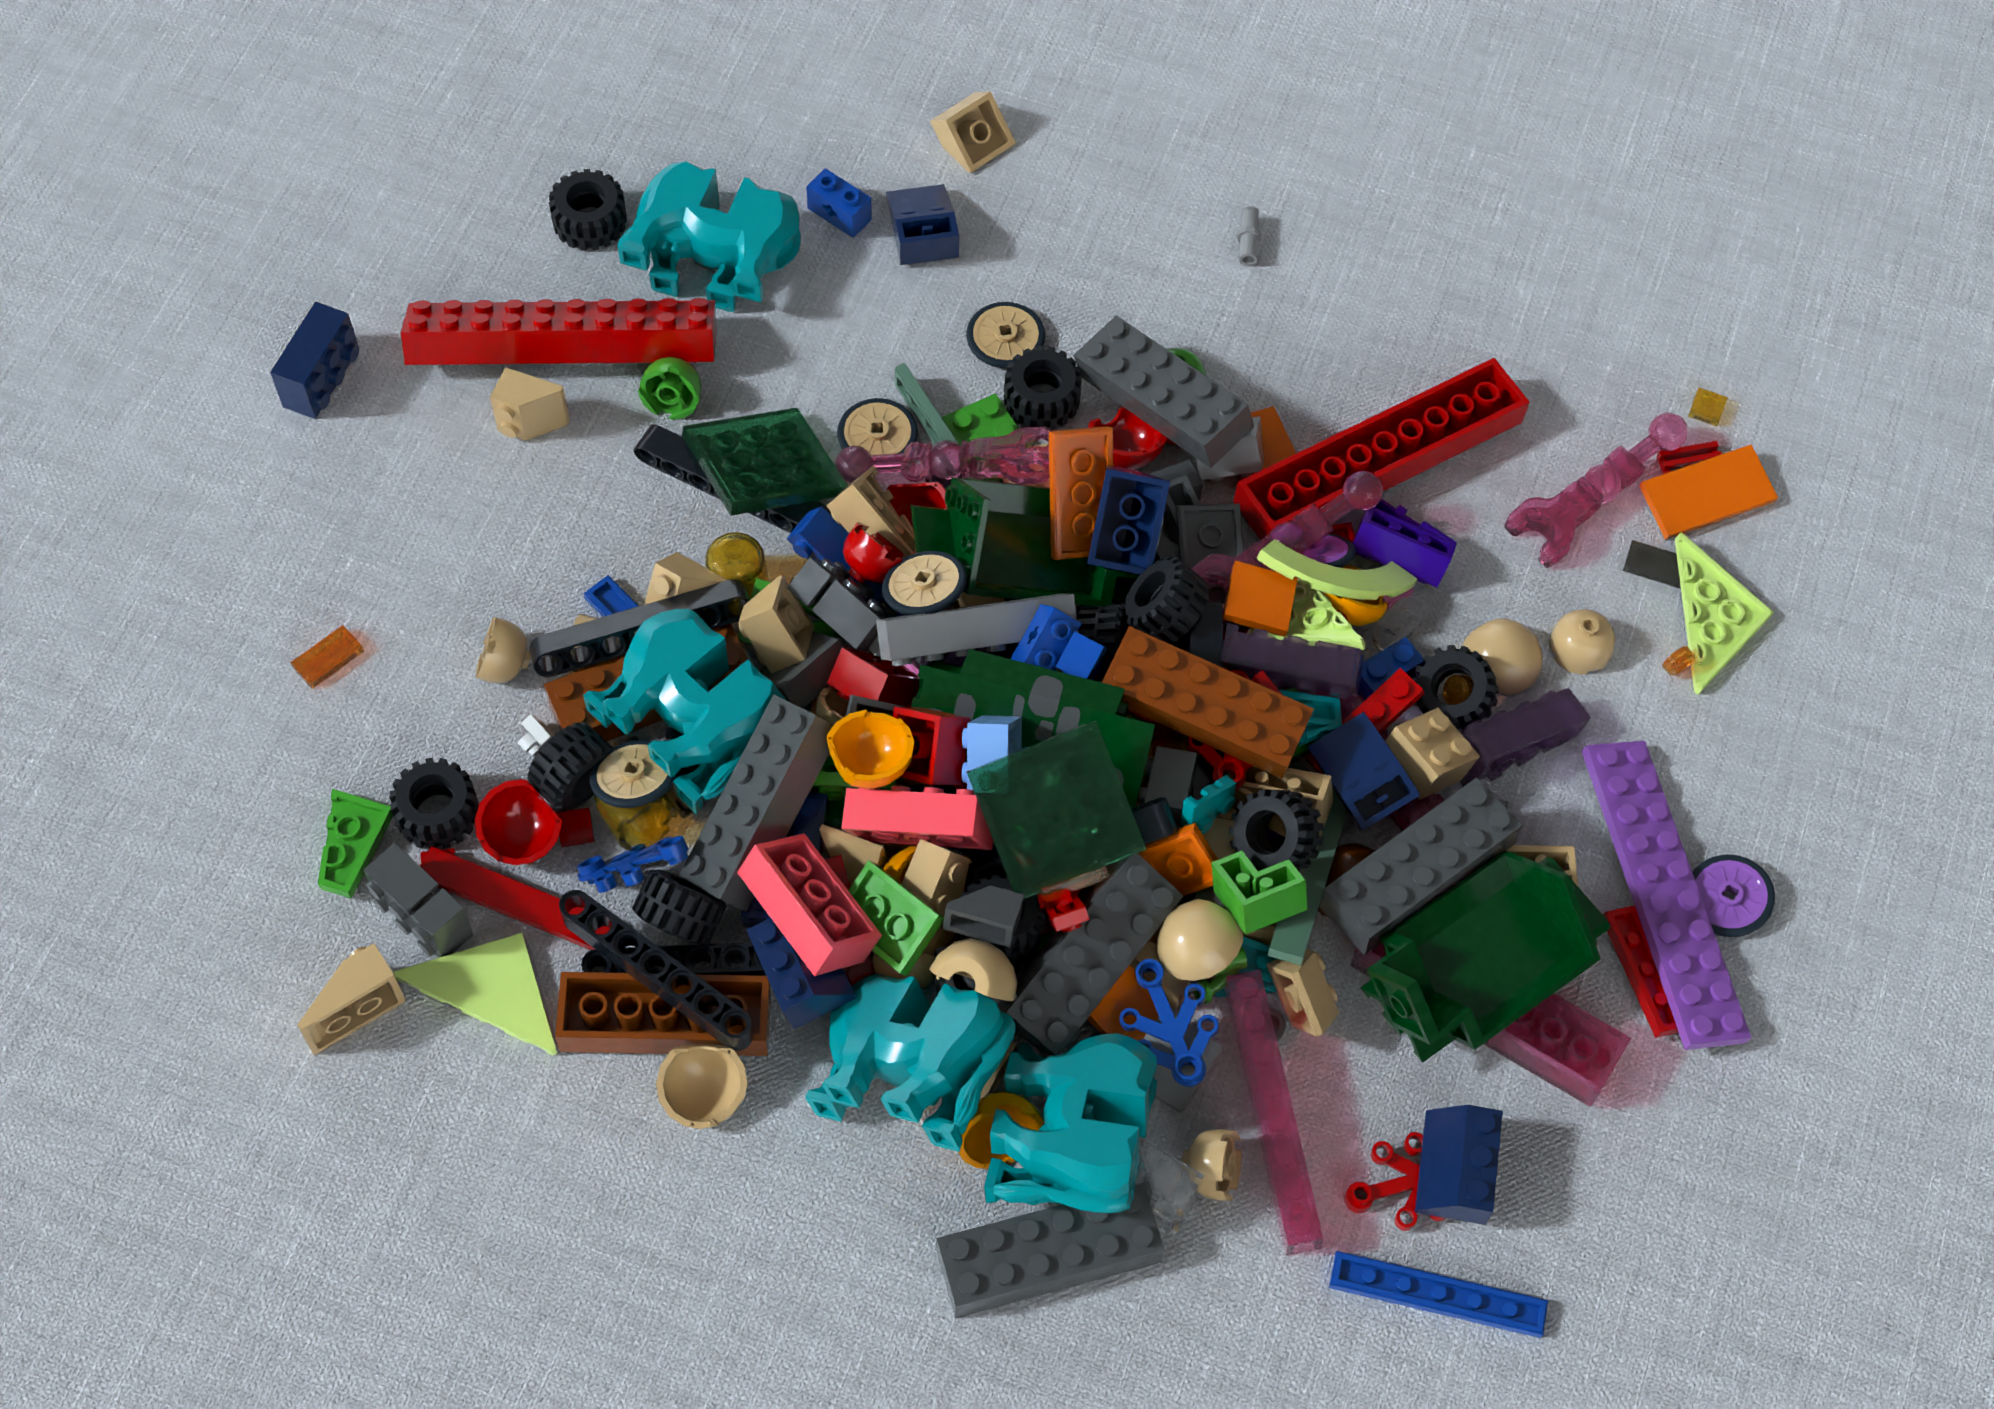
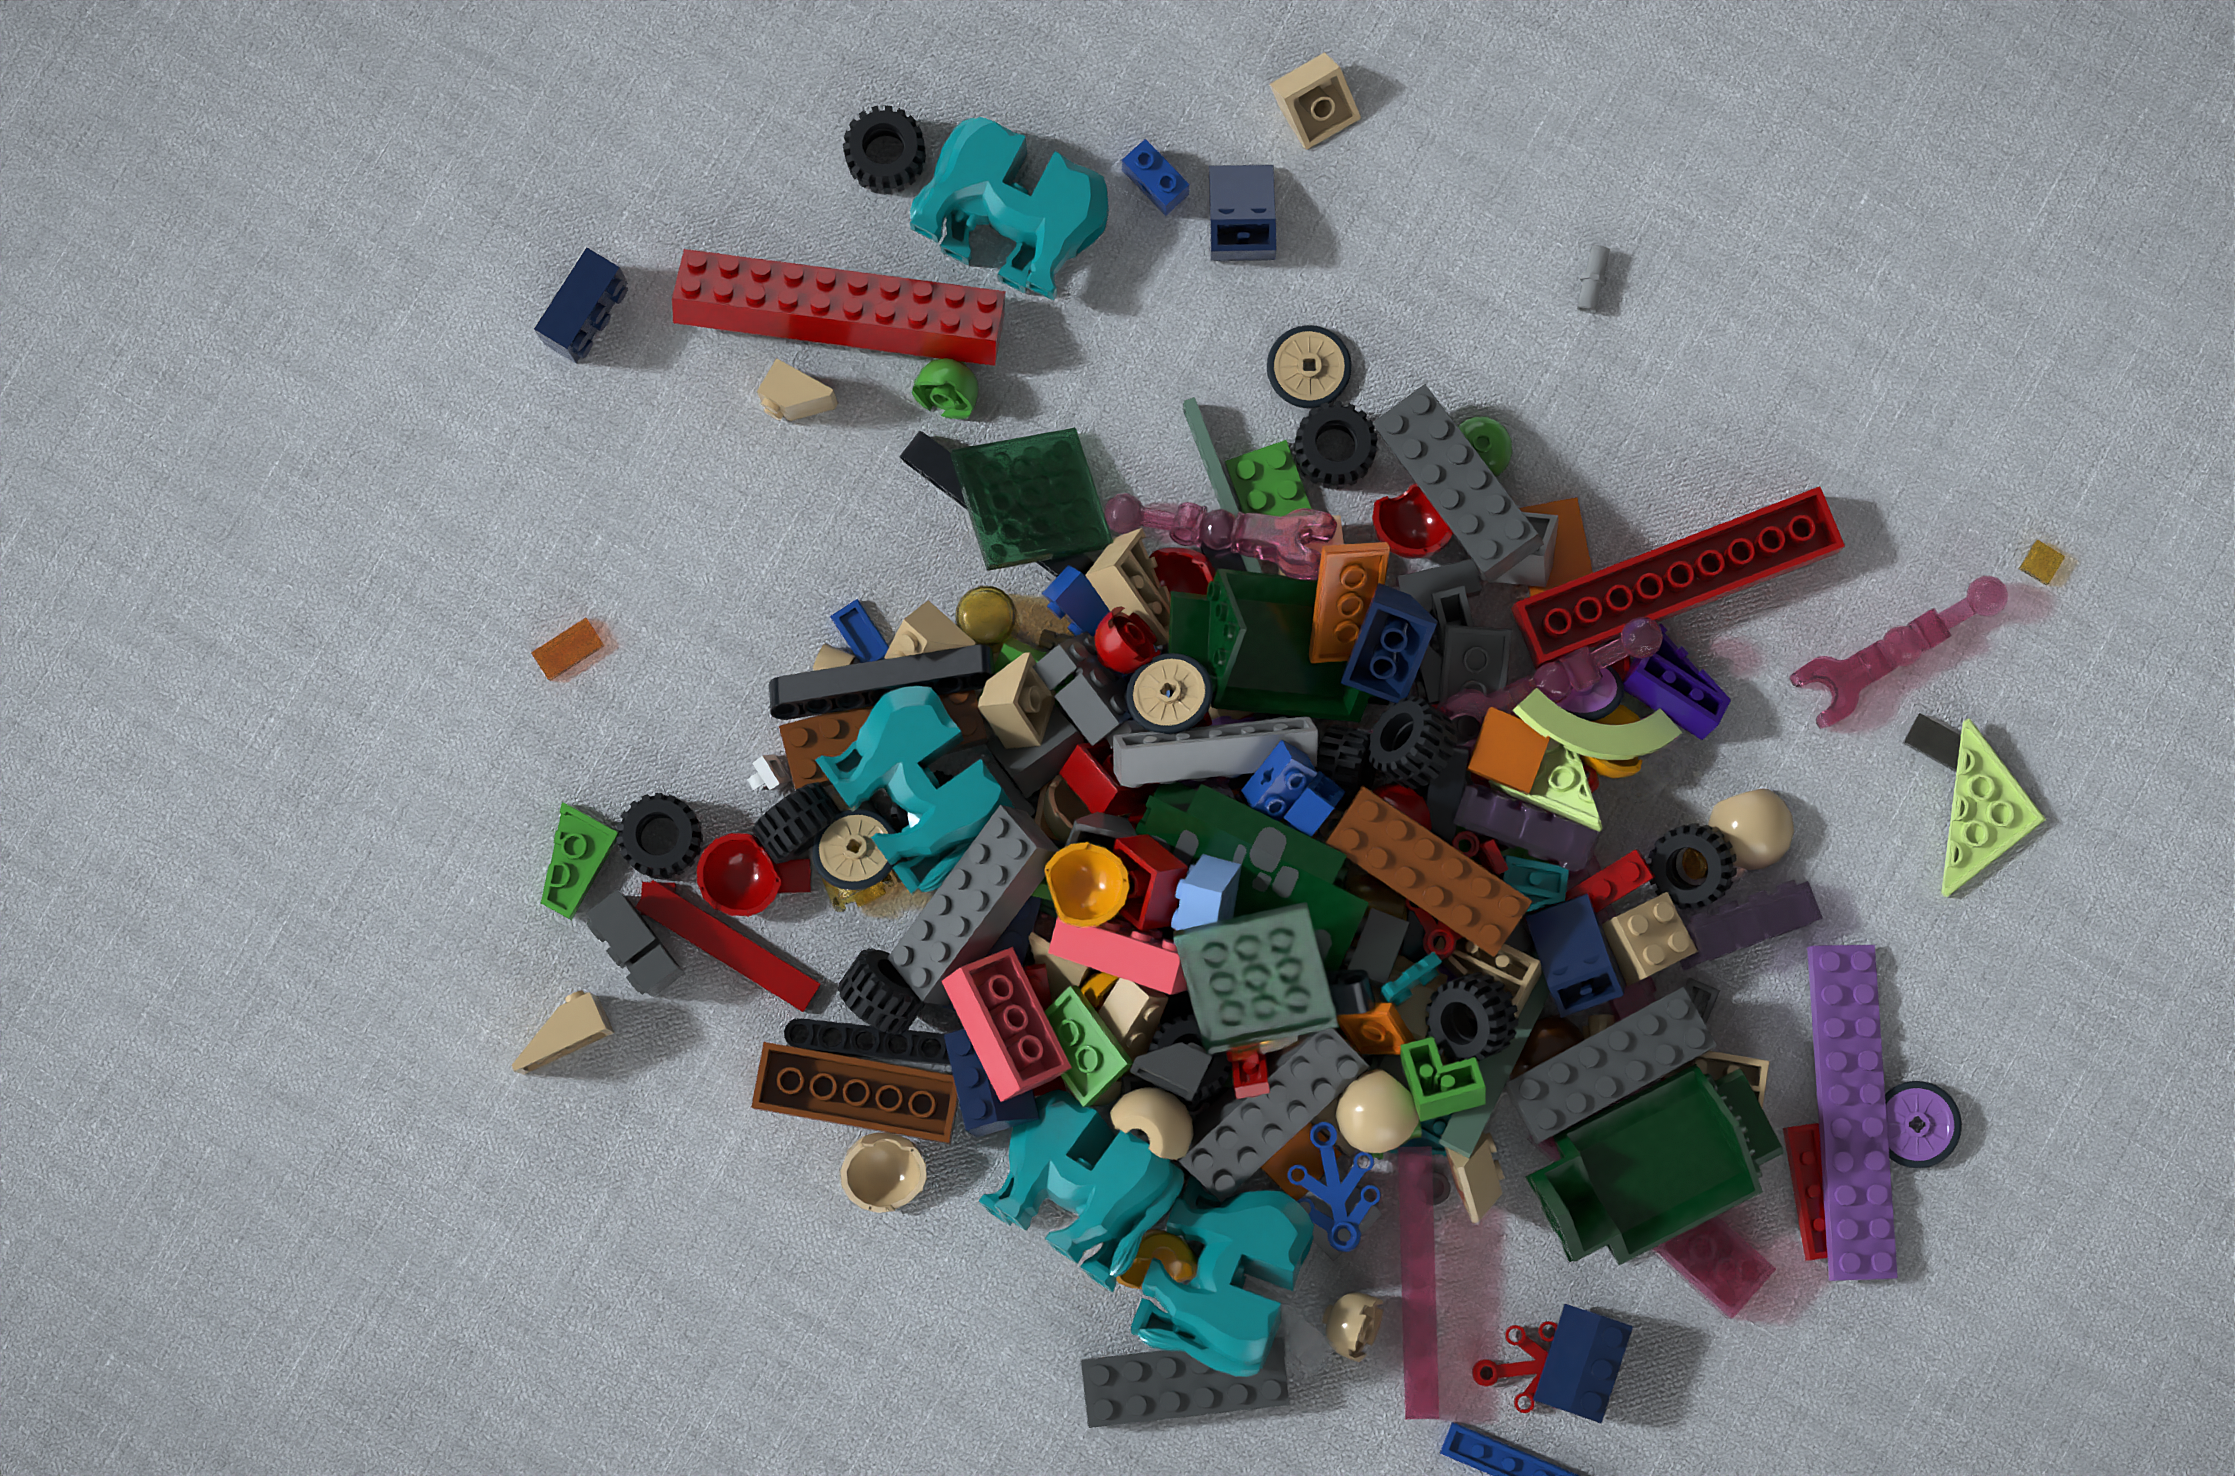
camera: 15 degrees right, 20 degrees up
(491, 985) = (698, 1031): yellowish green tile -> none
(503, 652) = (741, 678): tan cylinder -> none
(595, 868) = (808, 927): blue plant -> none
(662, 983) = (838, 1051): black beam -> none
(879, 416) = (1161, 447): tan wheel -> none
(1386, 663) = (1630, 832): blue brick -> none
(1582, 641) = (1838, 823): tan cylinder -> none
(1678, 661) = (1931, 862): clear orange tile -> none
(1687, 455) = (2035, 625): red tile -> none
(1708, 492) = (2014, 668): orange tile -> none

